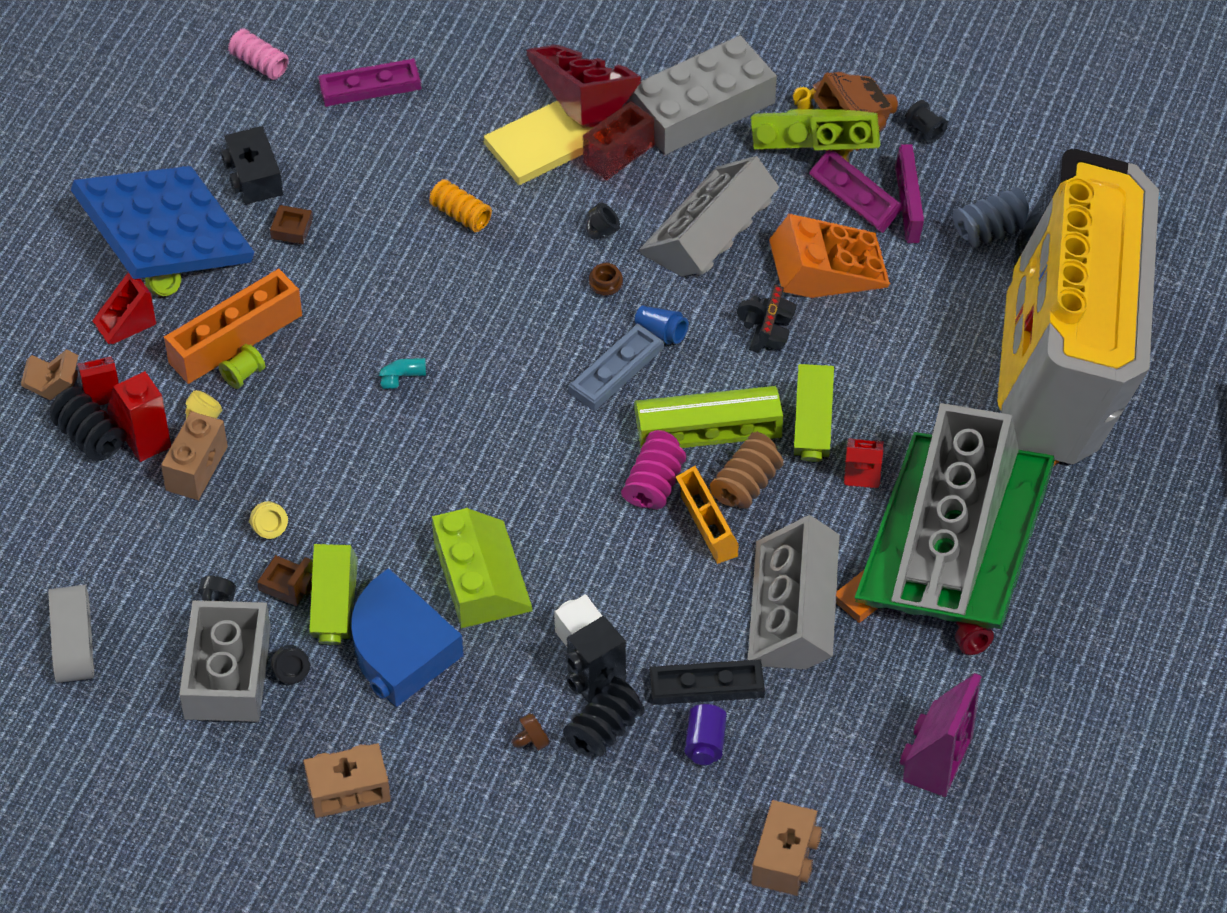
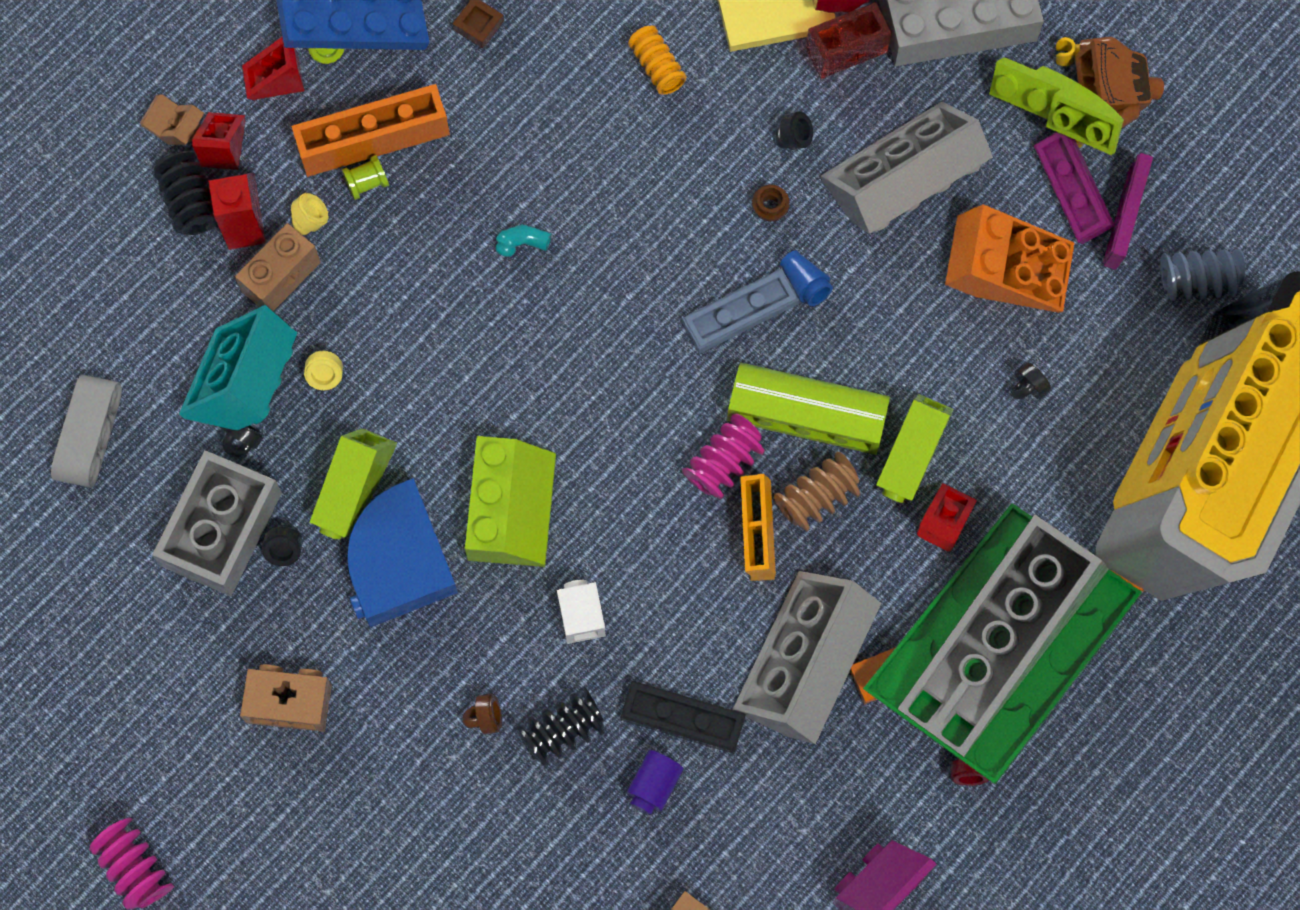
camera: 20 degrees right, 20 degrees up
(196, 536) = (240, 371): none -> teal slope
(287, 579) = (313, 446): reddish brown bracket -> none
(594, 658) = (574, 662): black brick -> none
(763, 317) = (926, 302): black hips -> none
(888, 338) = (1030, 382): none -> black tile
(926, 121) = (1184, 125): black bush -> none

